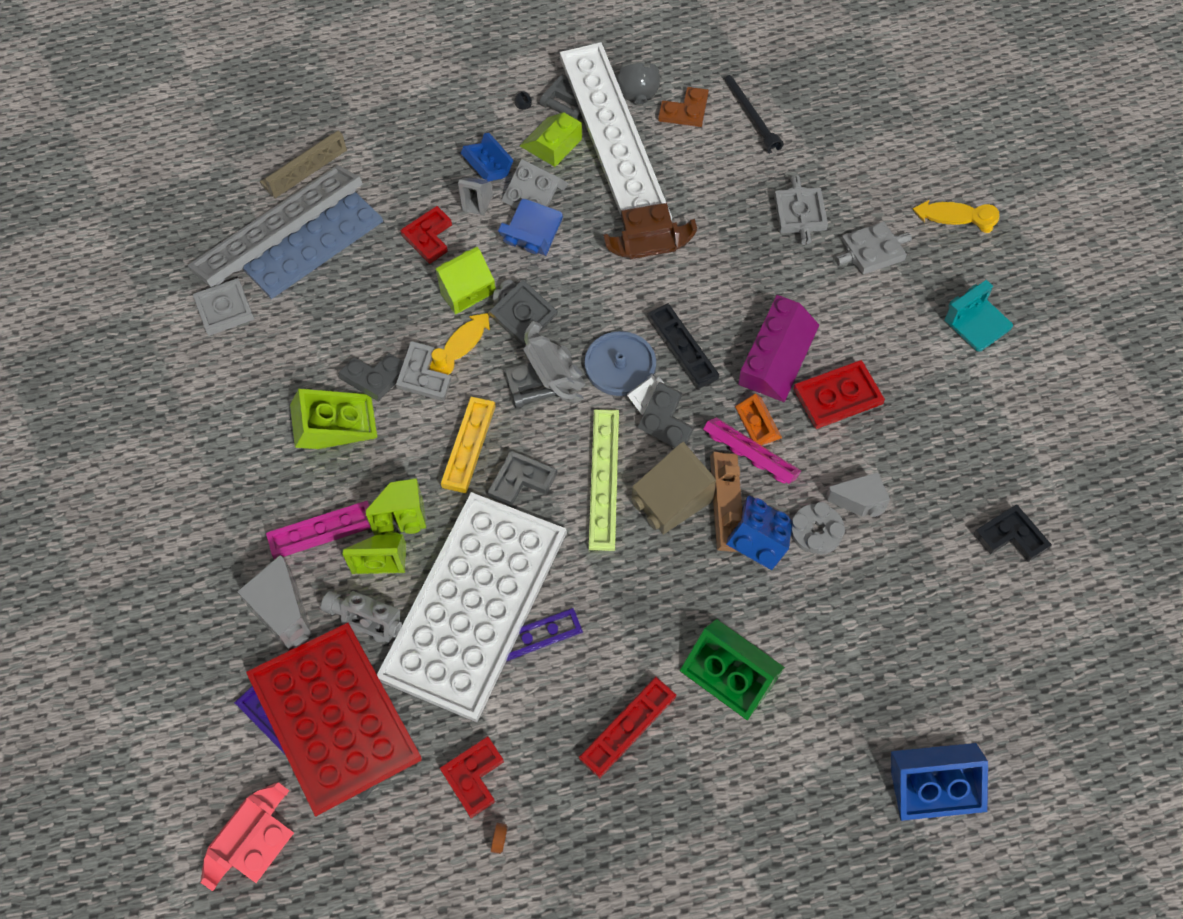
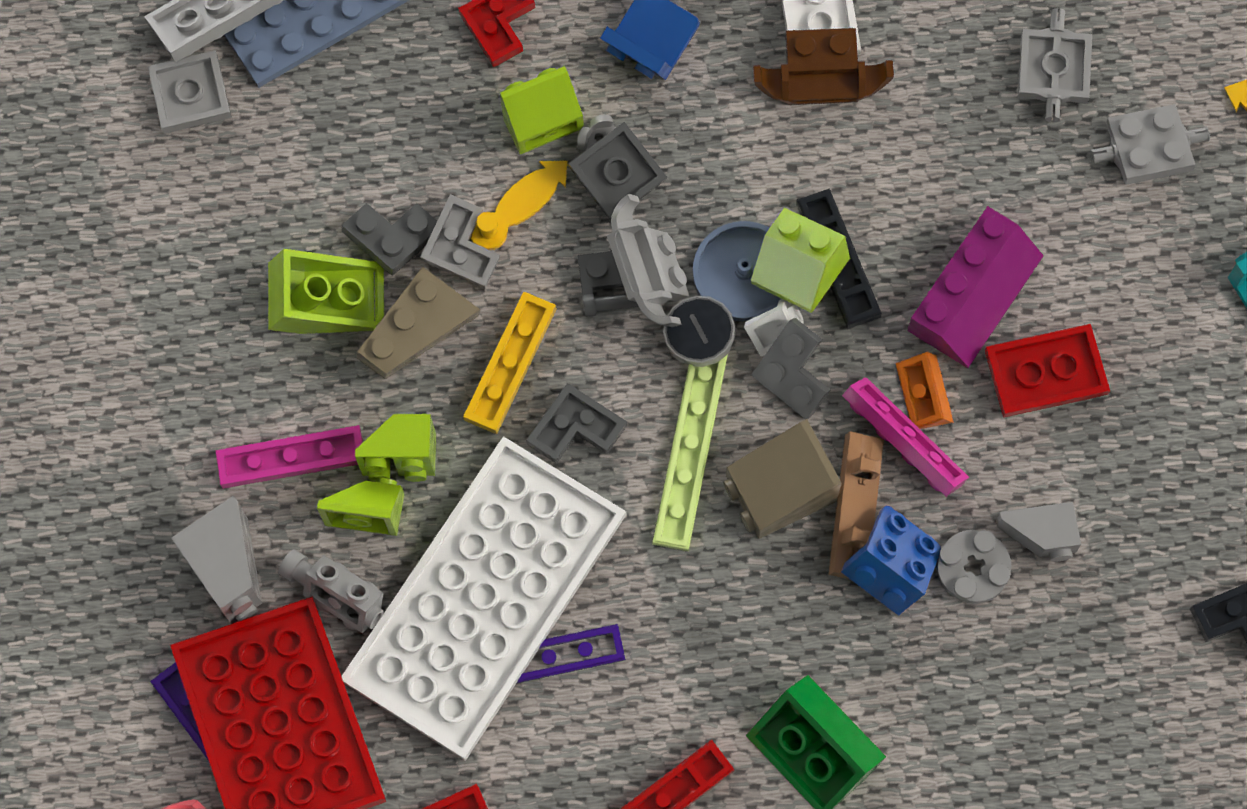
camera: 10 degrees right, 10 degrees up
(397, 427) = (415, 323): none -> dark tan wedge
(600, 403) = (704, 333): none -> black tile
(657, 345) = (799, 260): none -> lime slope

